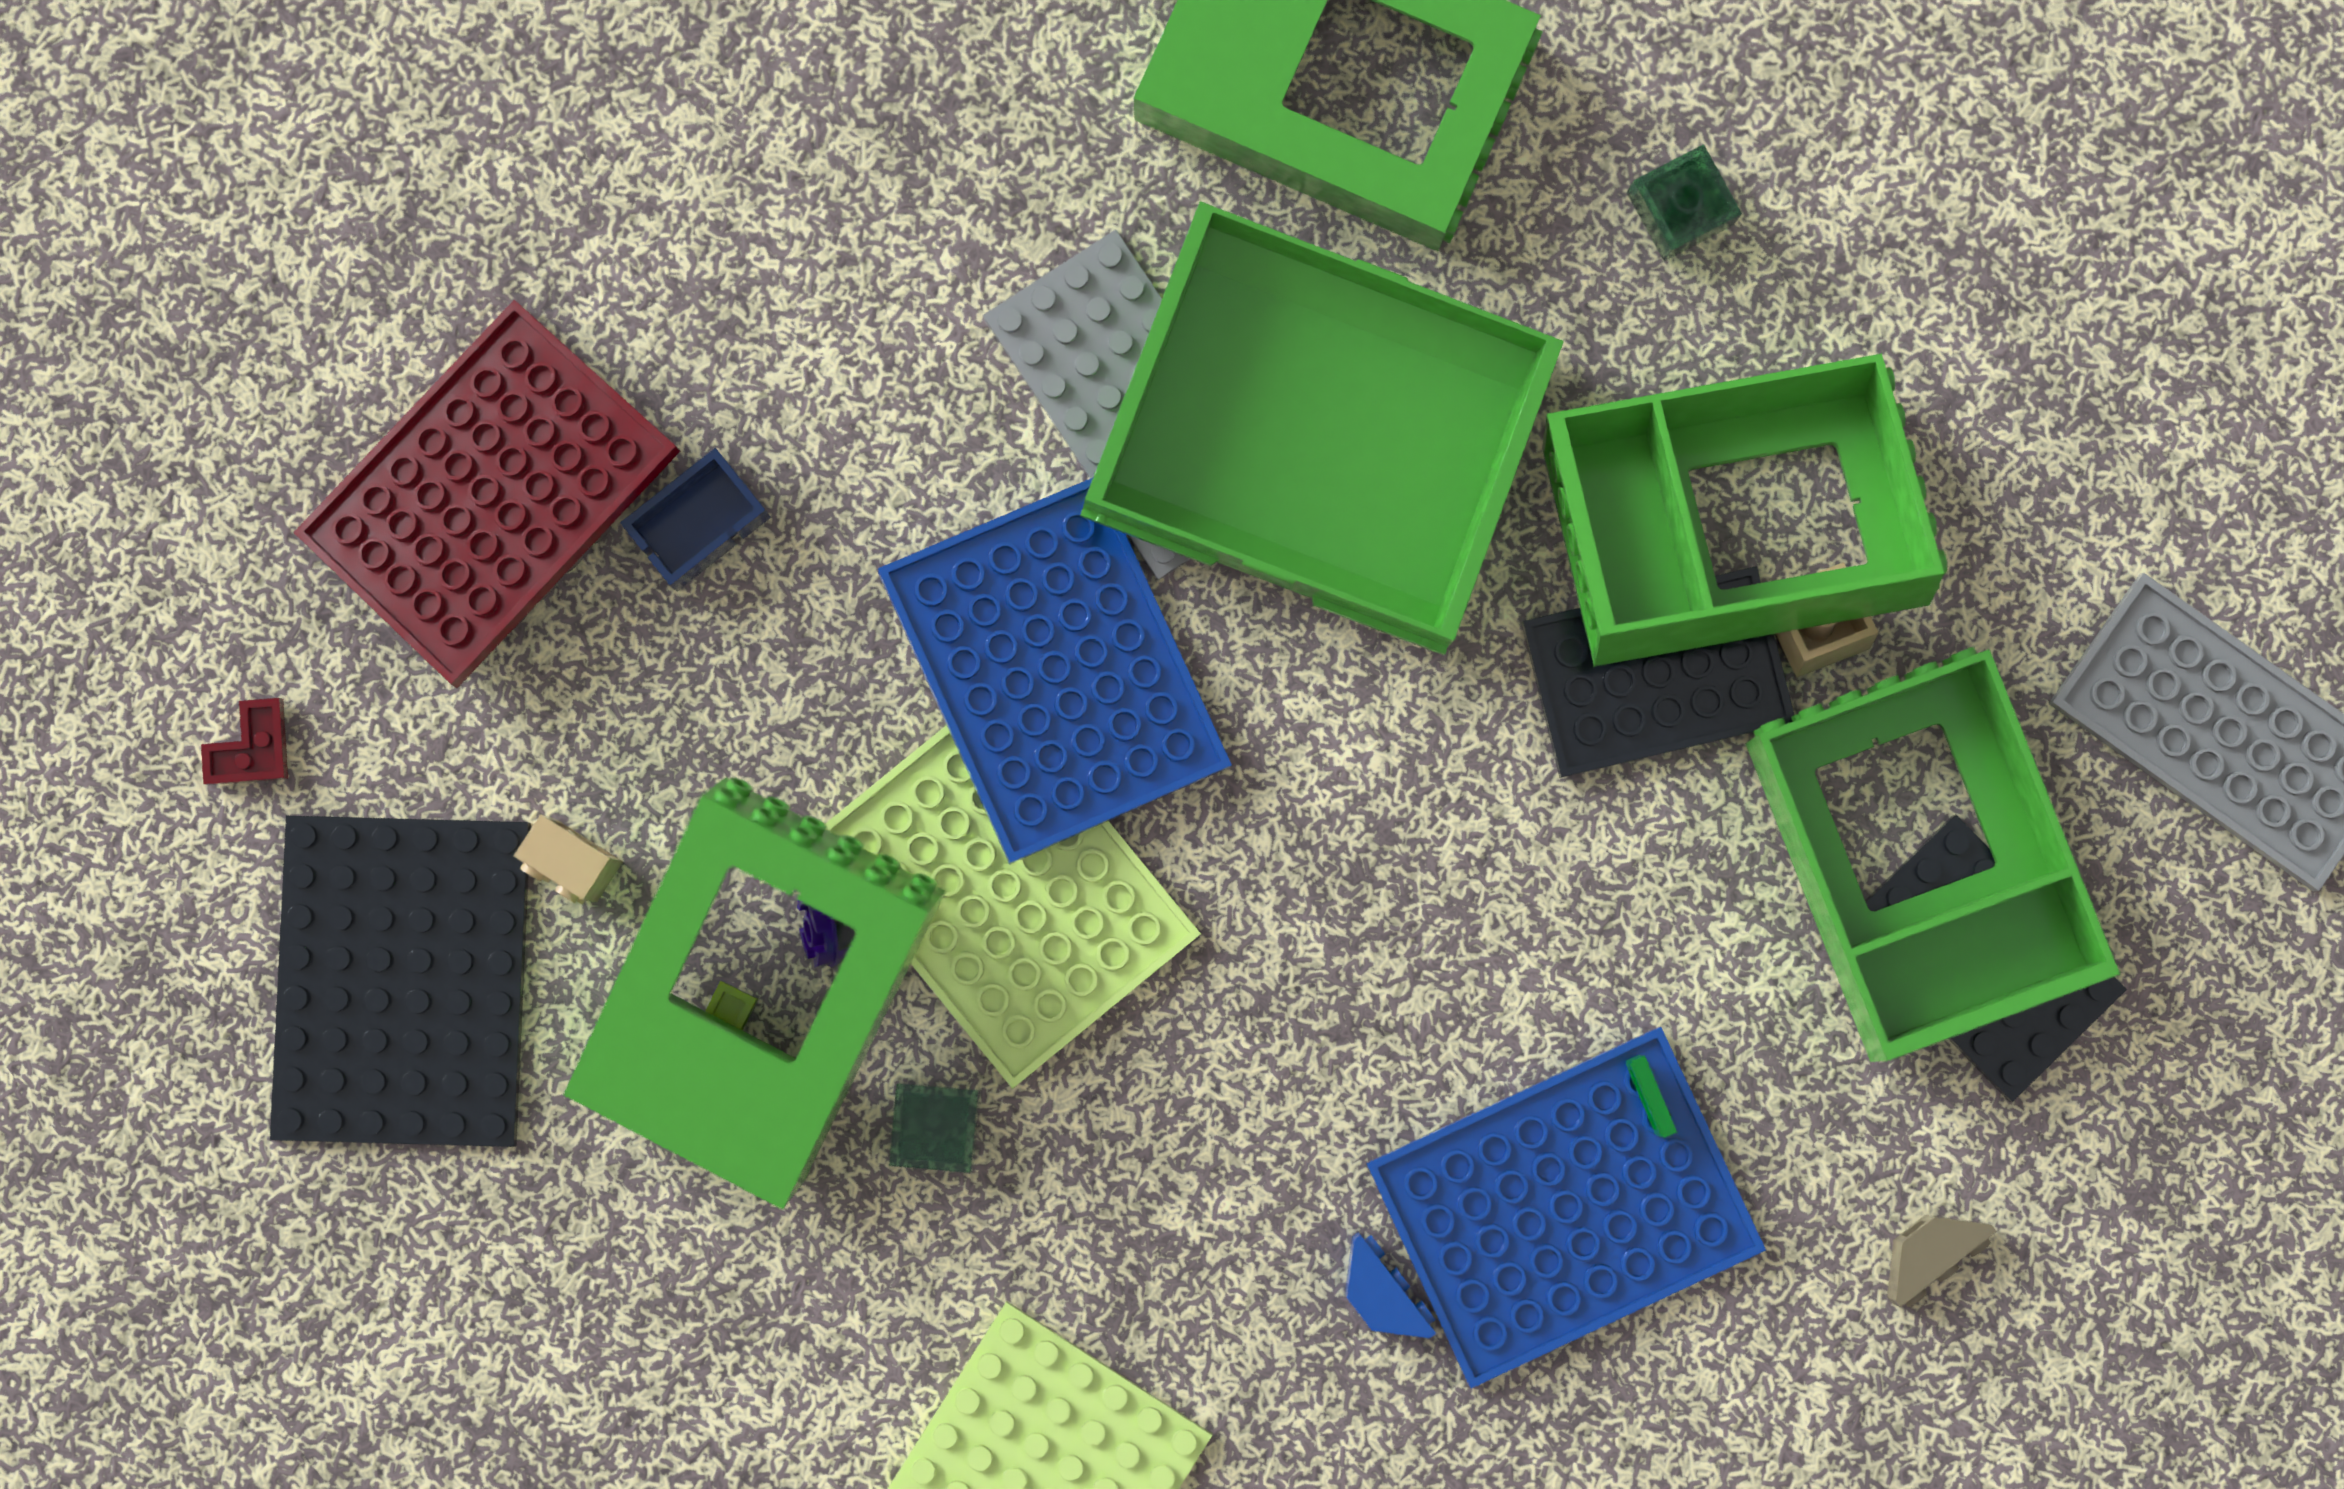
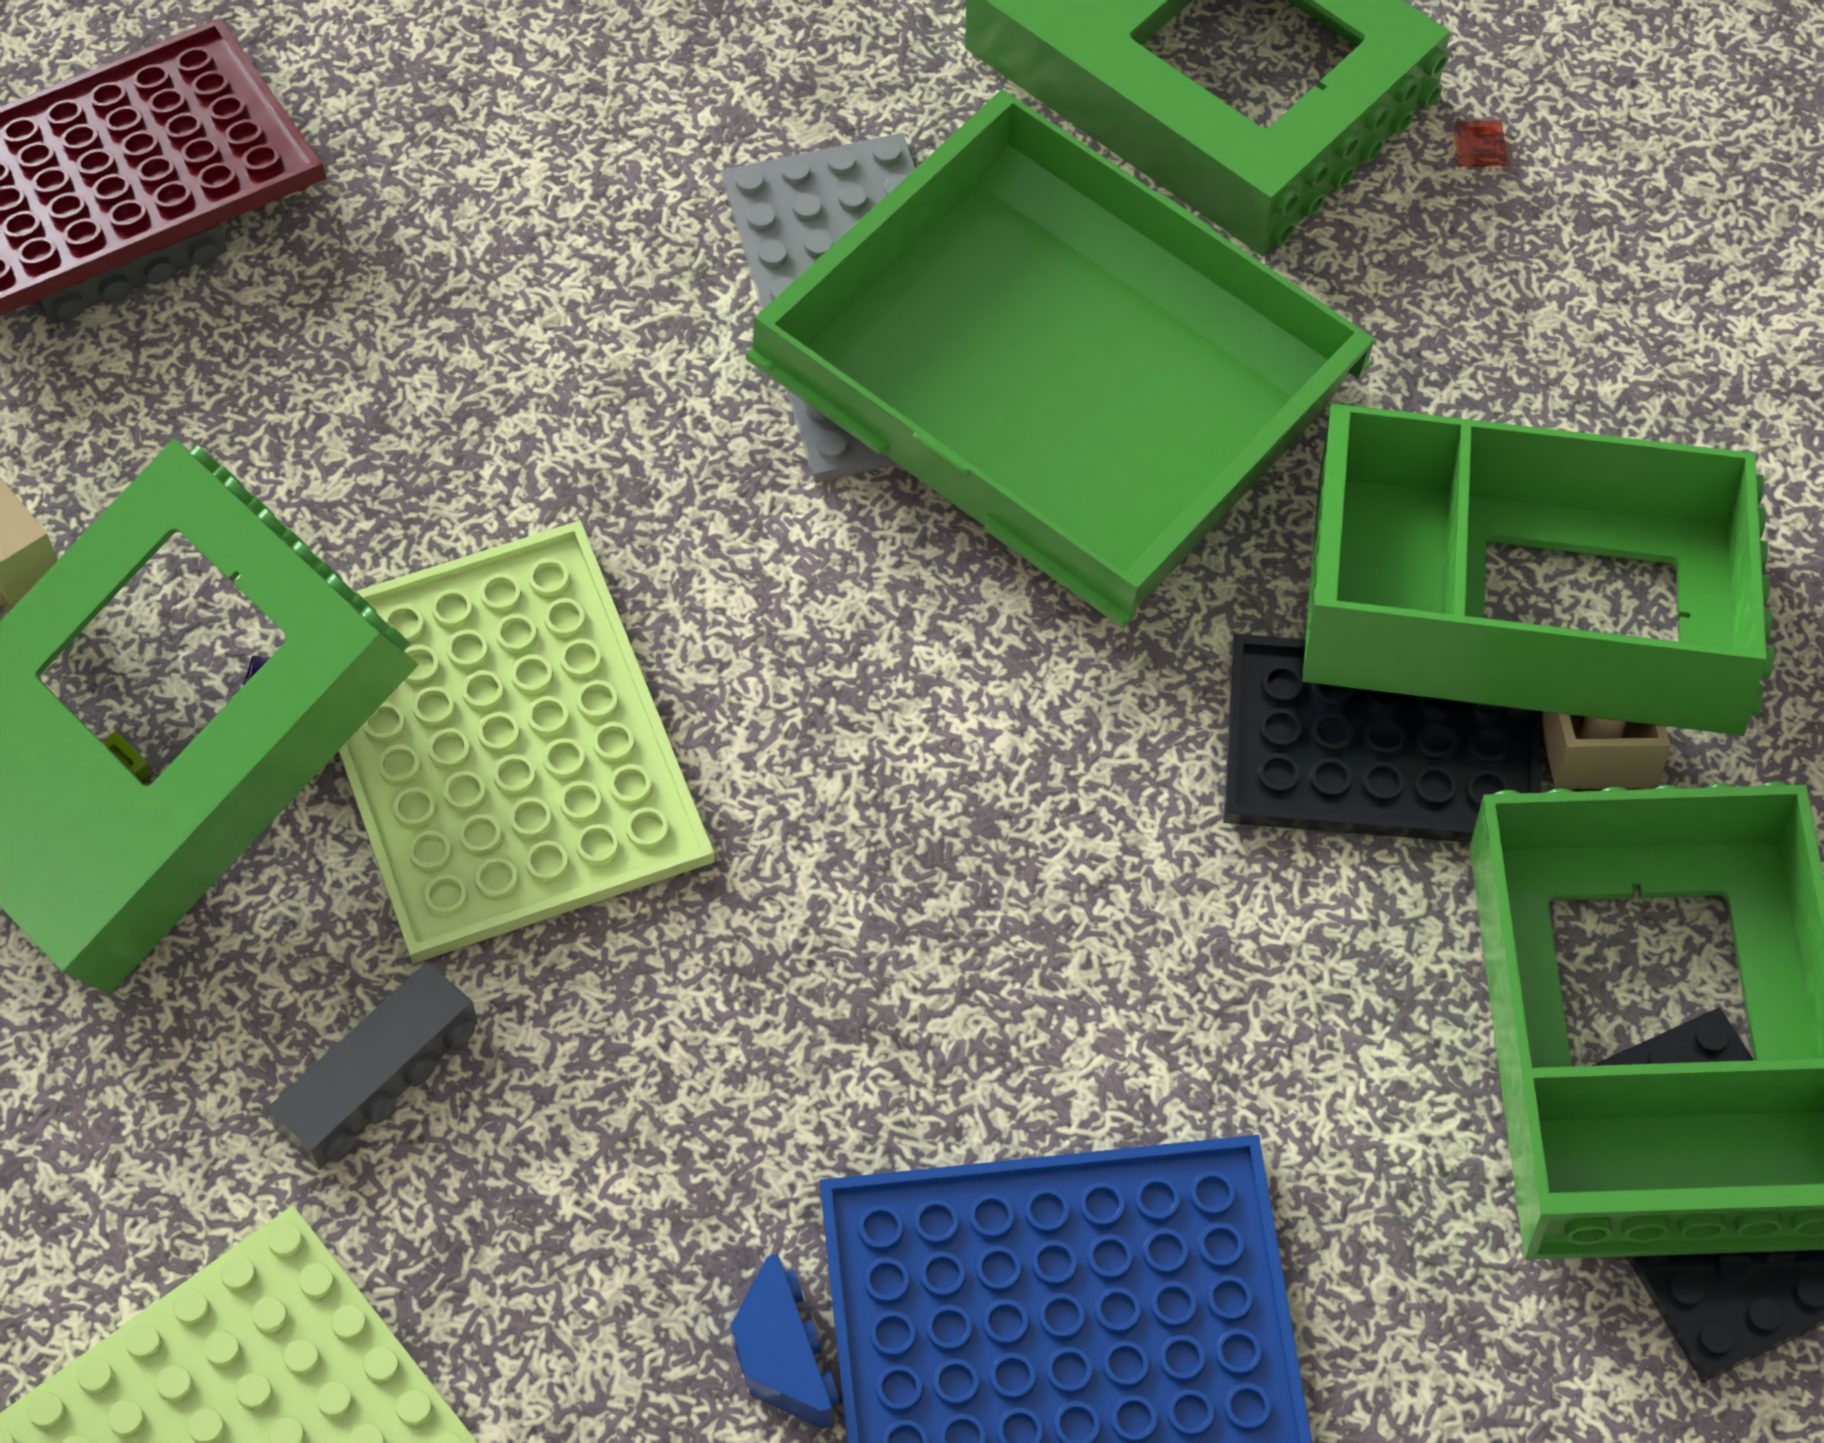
camera: 20 degrees right, 25 degrees down
(695, 519) = (314, 261): dark blue piece -> none
(934, 1127) = (295, 968): clear green brick -> none
(1020, 1182) = (374, 1066): none -> dark grey brick
(1053, 671) = (652, 525): blue plate -> none
(1580, 84) = (1480, 143): none -> clear red tile
(1650, 1096) = (1216, 1201): green tile -> none
(1684, 202) = (1563, 270): clear green brick -> none

